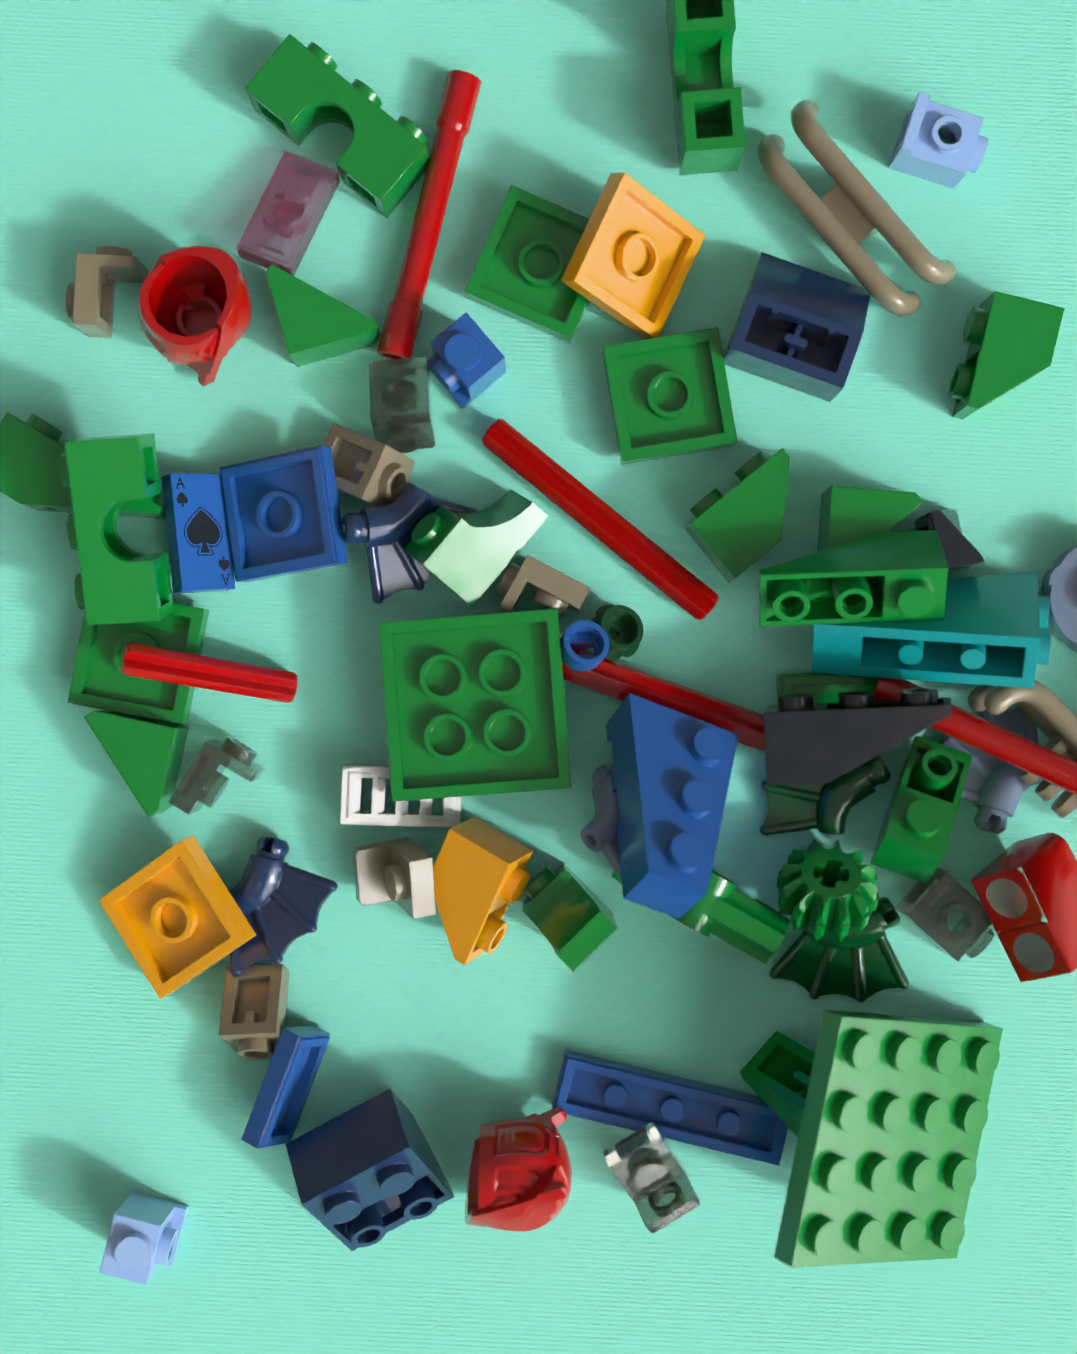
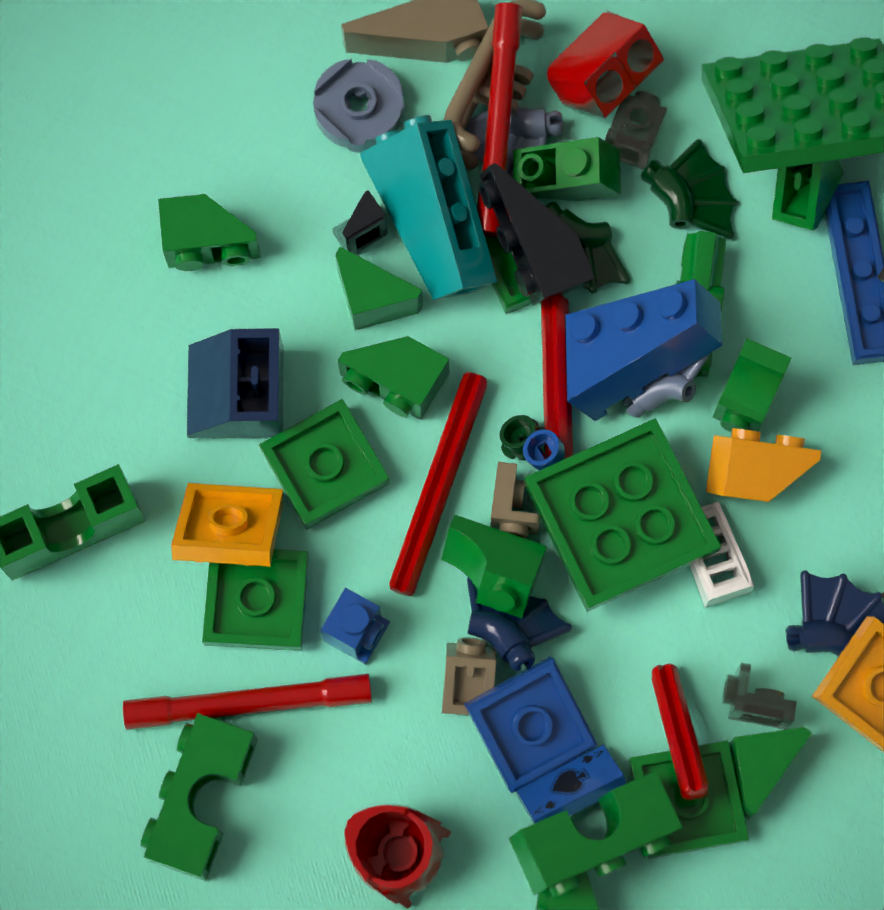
camera: 115 degrees left, 15 degrees down
(288, 213) = (286, 812): clear pink plate -> none
(316, 323) = (367, 758): green slope -> none
(396, 873) = (772, 528): dark tan bracket -> none
(401, 403) = (405, 665): clear smoke bracket -> none
(827, 890) = (654, 214): green gear -> none
(850, 213) = (135, 380): dark tan piece -> none
(859, 582) = (418, 265): green slope -> none
(925, 155) = (63, 349): light blue brick -> none

